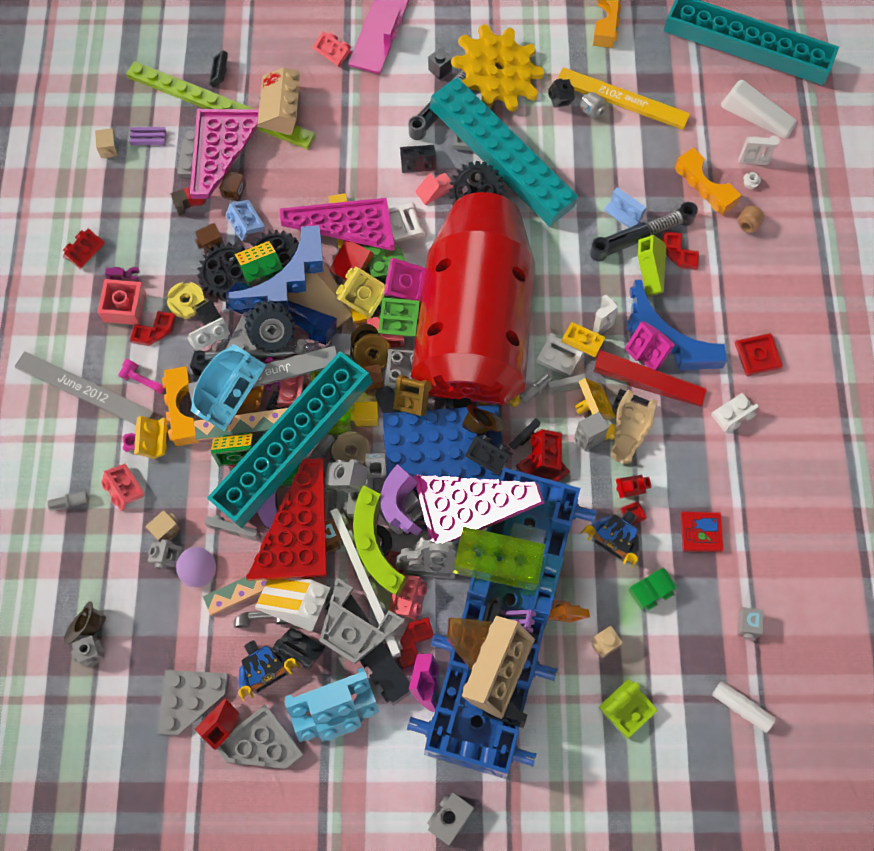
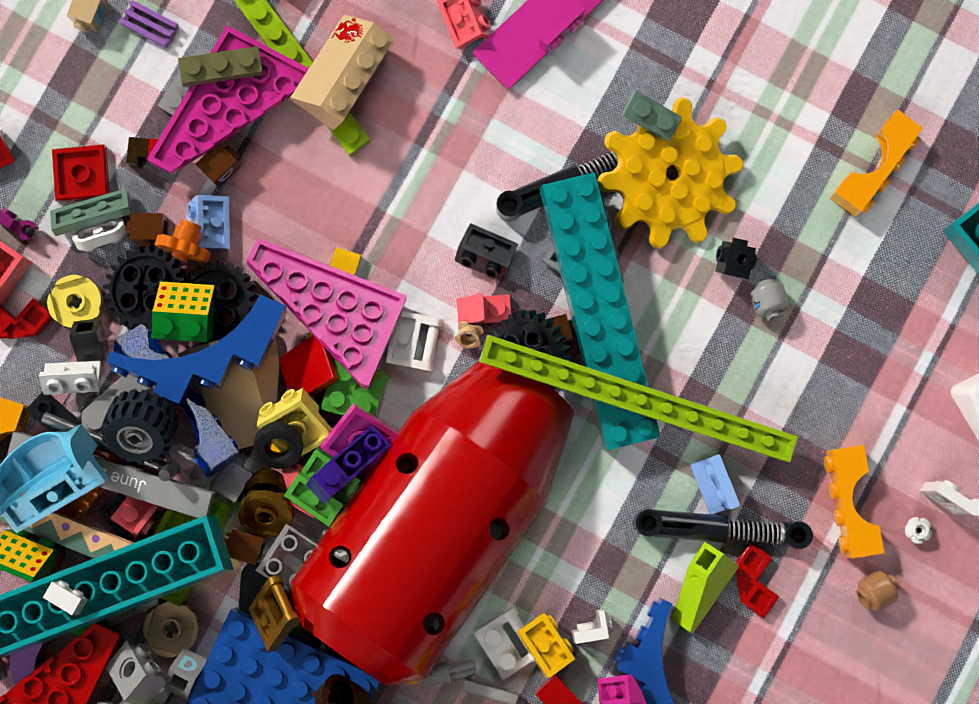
camera: 30 degrees right, 15 degrees up
(149, 231) = (80, 173): none -> red tile
(168, 246) = (90, 212): none -> sand green plate
(185, 252) = (99, 234): none -> white plate
(206, 128) = (220, 66): none -> olive plate
(237, 230) = (184, 243): none -> orange plant
(278, 441) = (65, 598): none -> white piece
(348, 302) = (278, 459): none -> black tyre
(365, 414) = (215, 592): yellow brick -> none
(406, 293) = (347, 464): none -> dark purple slope
(434, 208) = (466, 340): none -> tan plate
(439, 63) = (596, 121): brick -> none
(470, 38) = (651, 116): none -> sand green plate
(552, 176) = (637, 398): none -> lime plate
(626, 99) = (819, 308): yellow tile -> none

